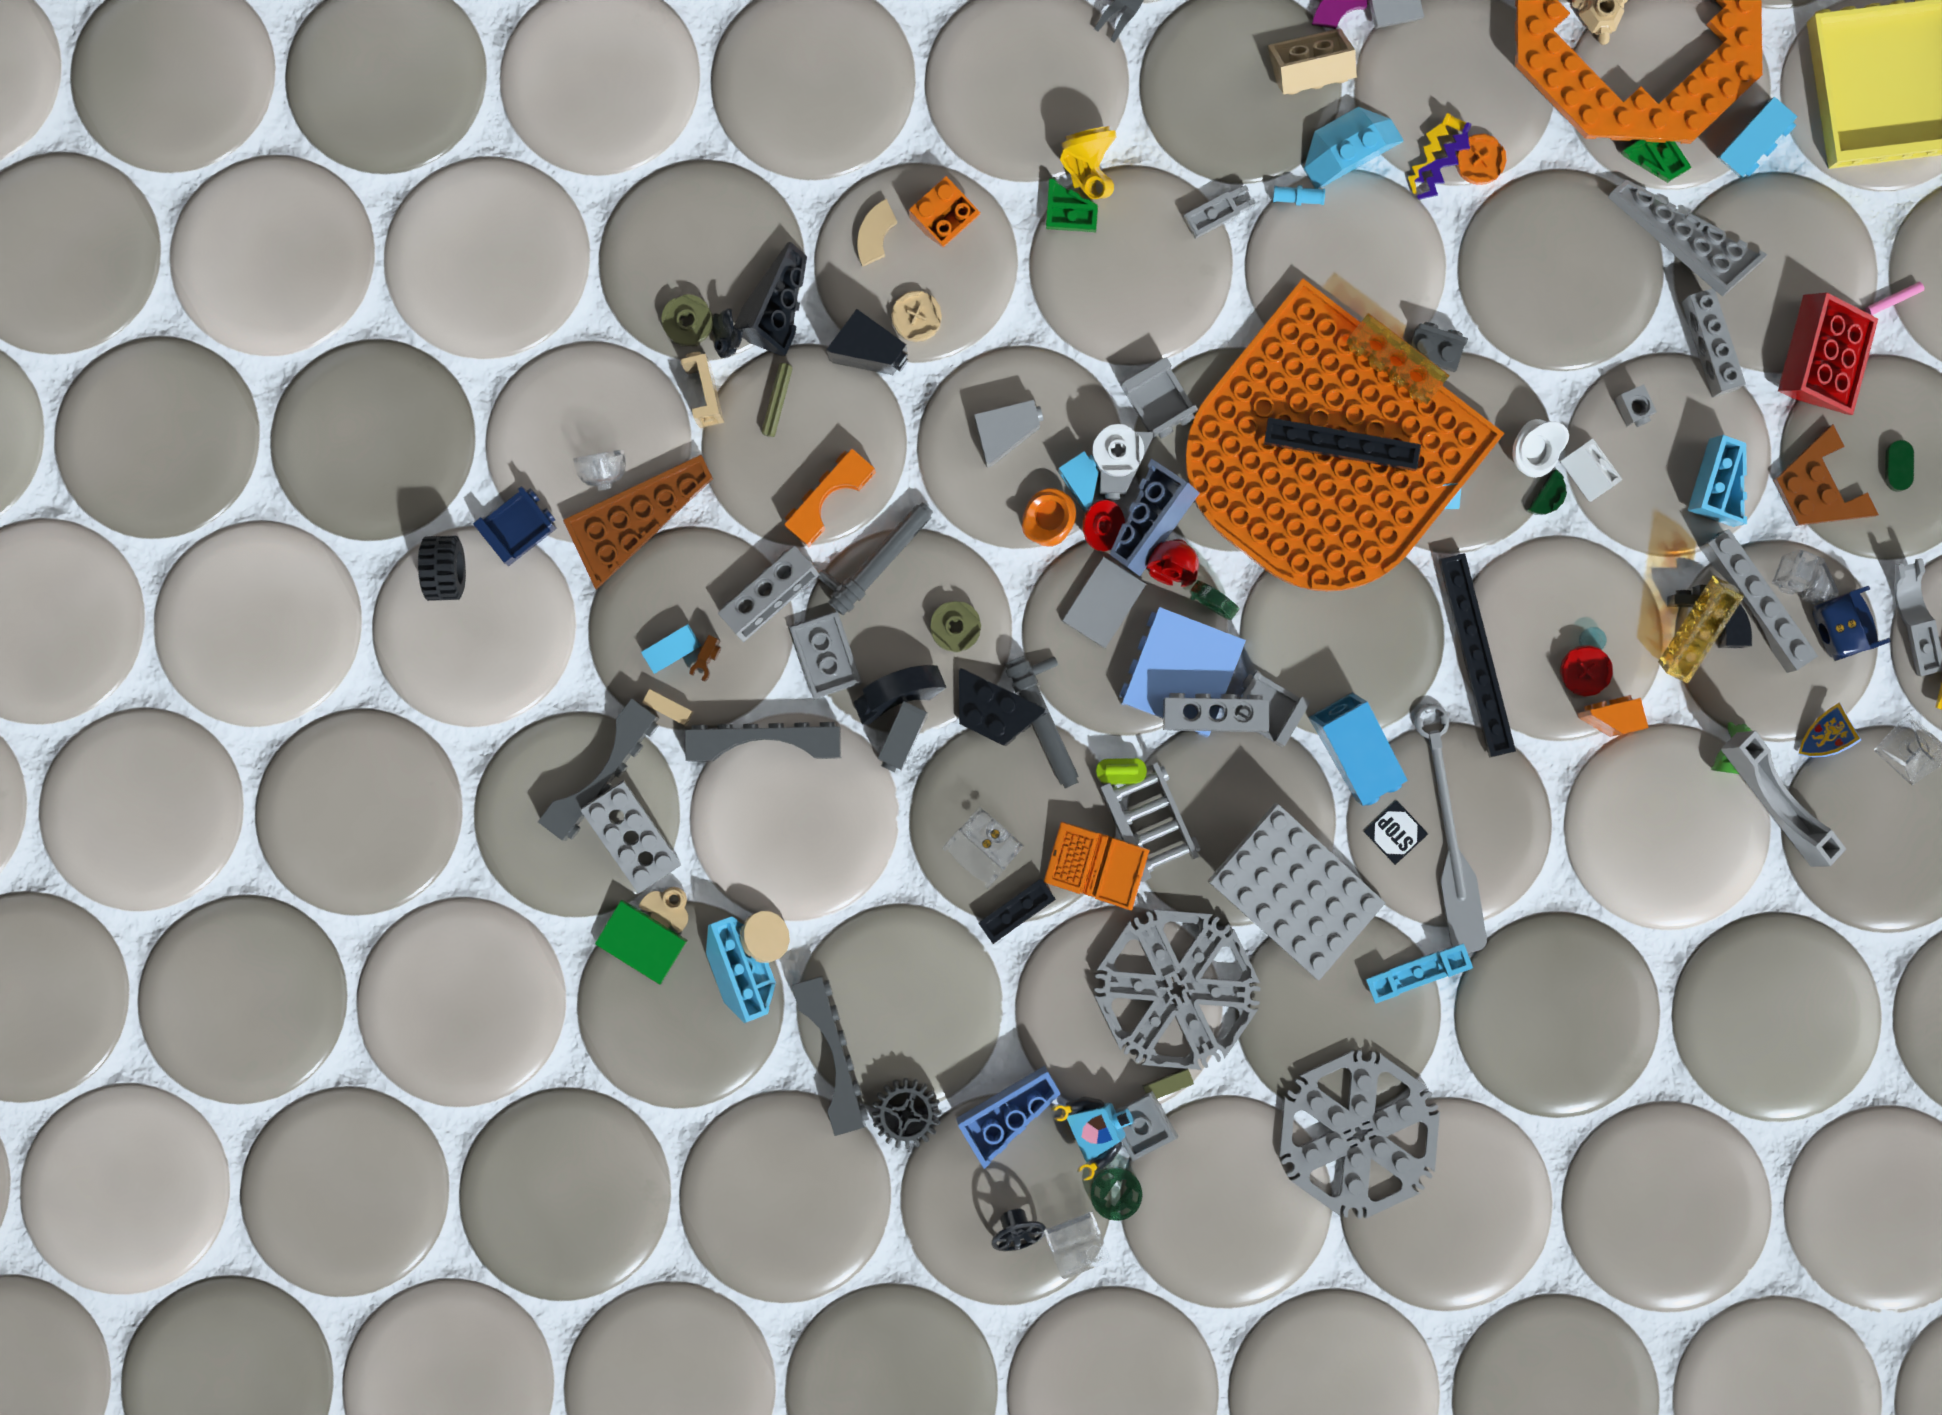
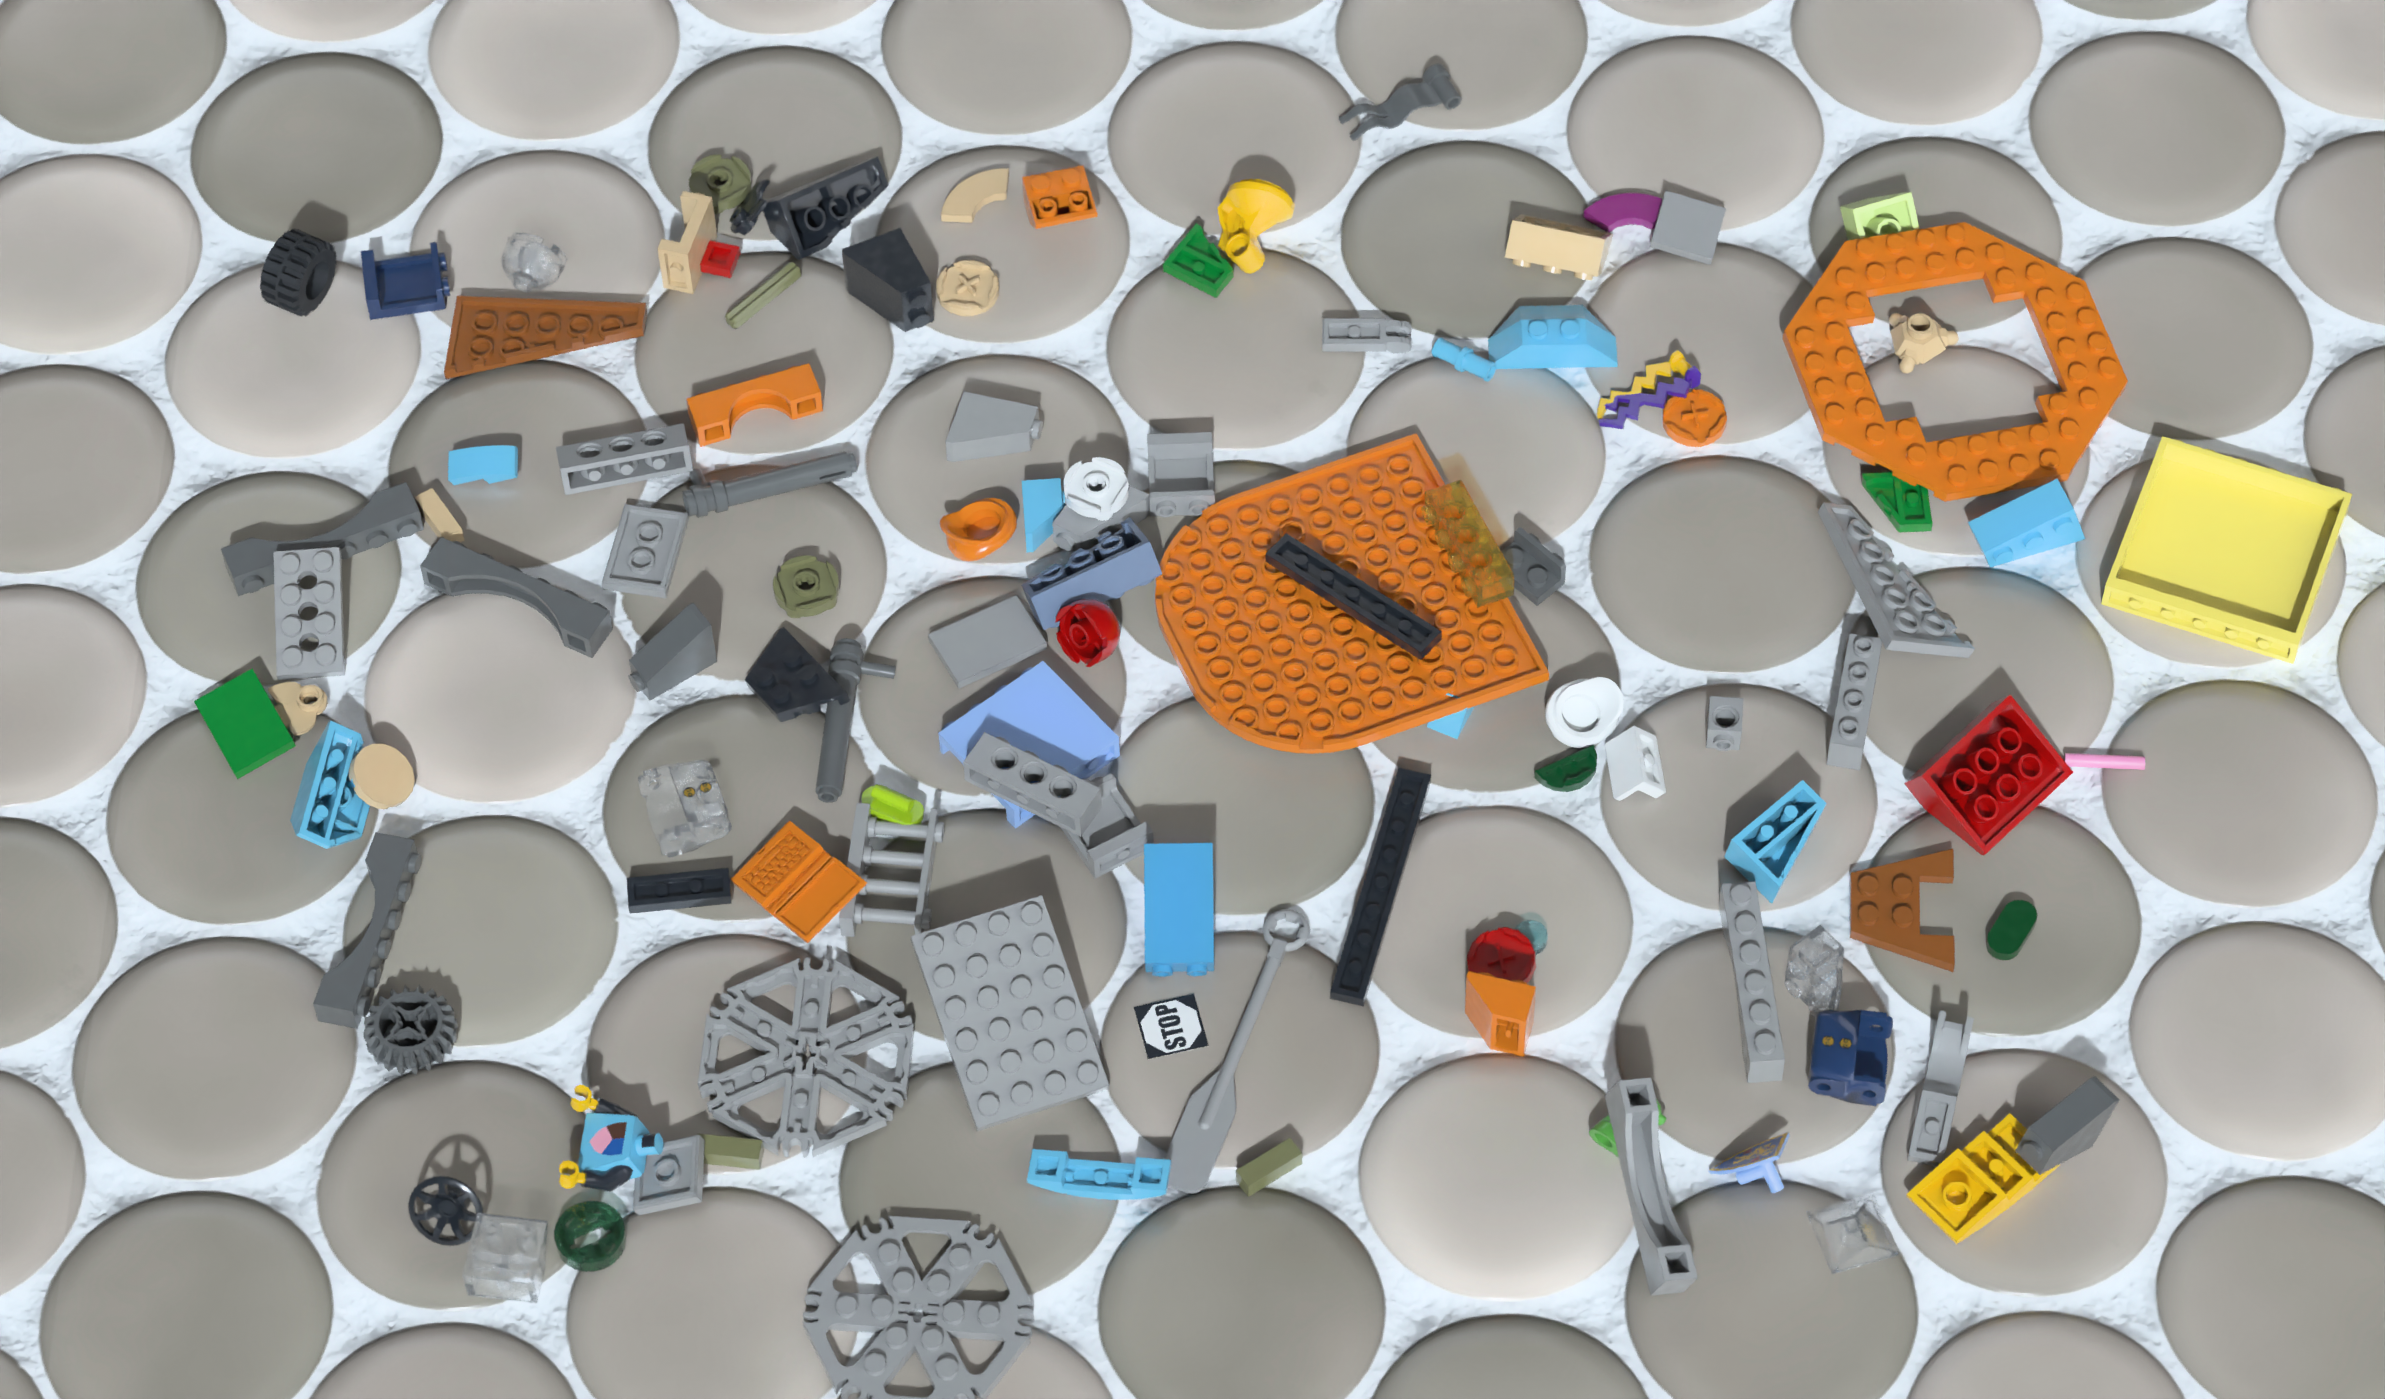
camera: 30 degrees right, 30 degrees down
(709, 651) = (517, 486): reddish brown plate -> none
(728, 386) = (720, 259): none -> red plate
(905, 685) = (721, 604): black arch -> none
(1005, 1115) = (521, 1081): medium blue wedge -> none
(1110, 520) = (1032, 545): red dish -> none
(1214, 600) = (1109, 682): clear green piece -> none
(1521, 905) = (1269, 1167): none -> olive piece
(1700, 629) = (1655, 961): clear yellow brick -> none
(1736, 632) = (1701, 963): black arch -> none

